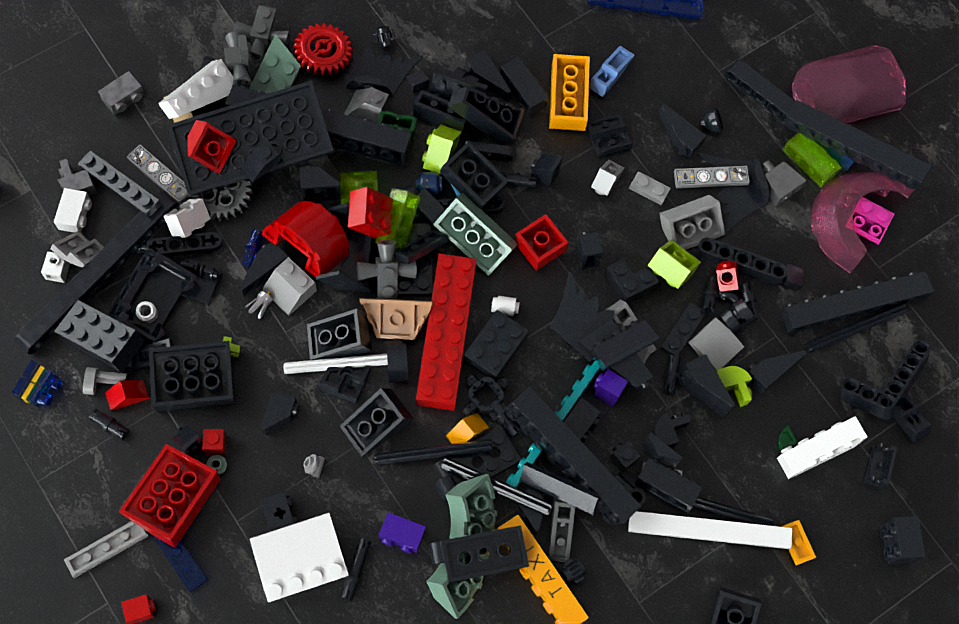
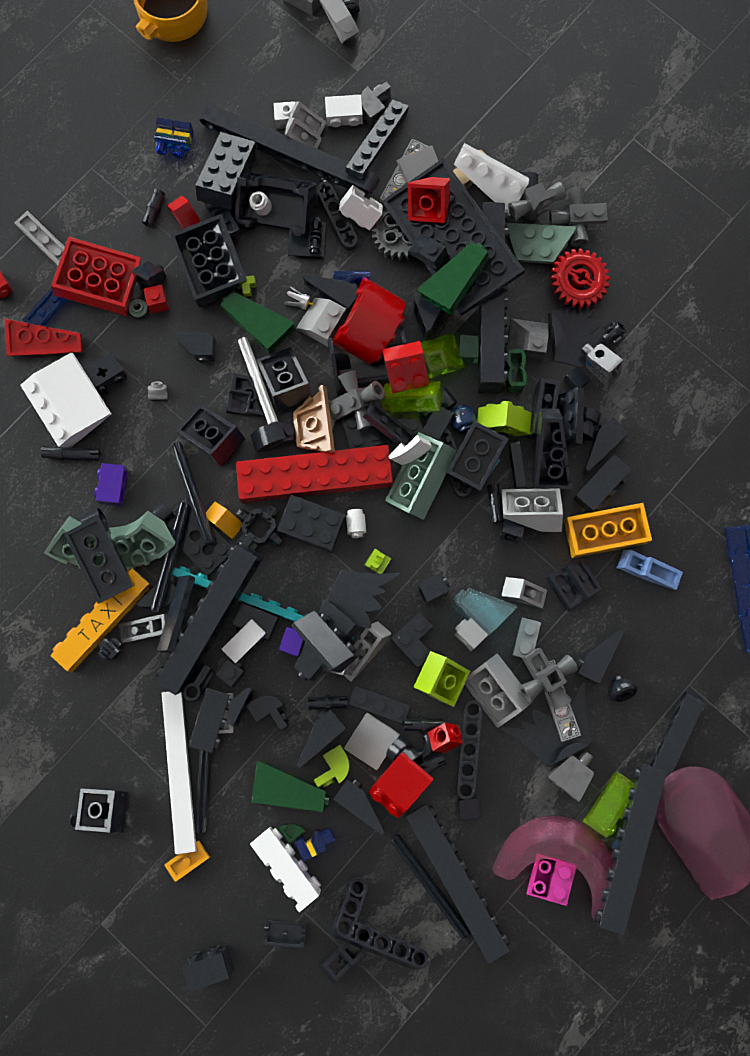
camera: 85 degrees right, 10 degrees up
(93, 376) = (189, 180): light grey piece -> none
(121, 93) = (475, 112): flat silver brick -> none
(161, 156) = (416, 163): none -> light grey slope
(218, 580) = (32, 339): none -> red wing
(271, 348) = (258, 322): none -> dark green slope
(302, 145) = (455, 278): none -> dark green slope
(360, 159) = (469, 347): none -> clear green panel
(412, 52) = (602, 363): none -> flat silver torso
(453, 239) = (415, 449): none -> white slope
(534, 142) = (534, 508): none -> light grey slope
(541, 242) = (430, 541): red brick -> none
(546, 297) = (378, 561): none -> lime tile
(599, 431) = (243, 640): none -> white slope
(620, 213) = (482, 608): none -> clear light blue slope
(638, 229) = (470, 633): none -> light grey brick
(693, 175) = (547, 678): none -> dark grey brick
(746, 435) = (283, 789): none -> dark green slope
(765, 323) = (400, 785): none -> red slope
(804, 415) = (315, 845): none -> clear blue hips

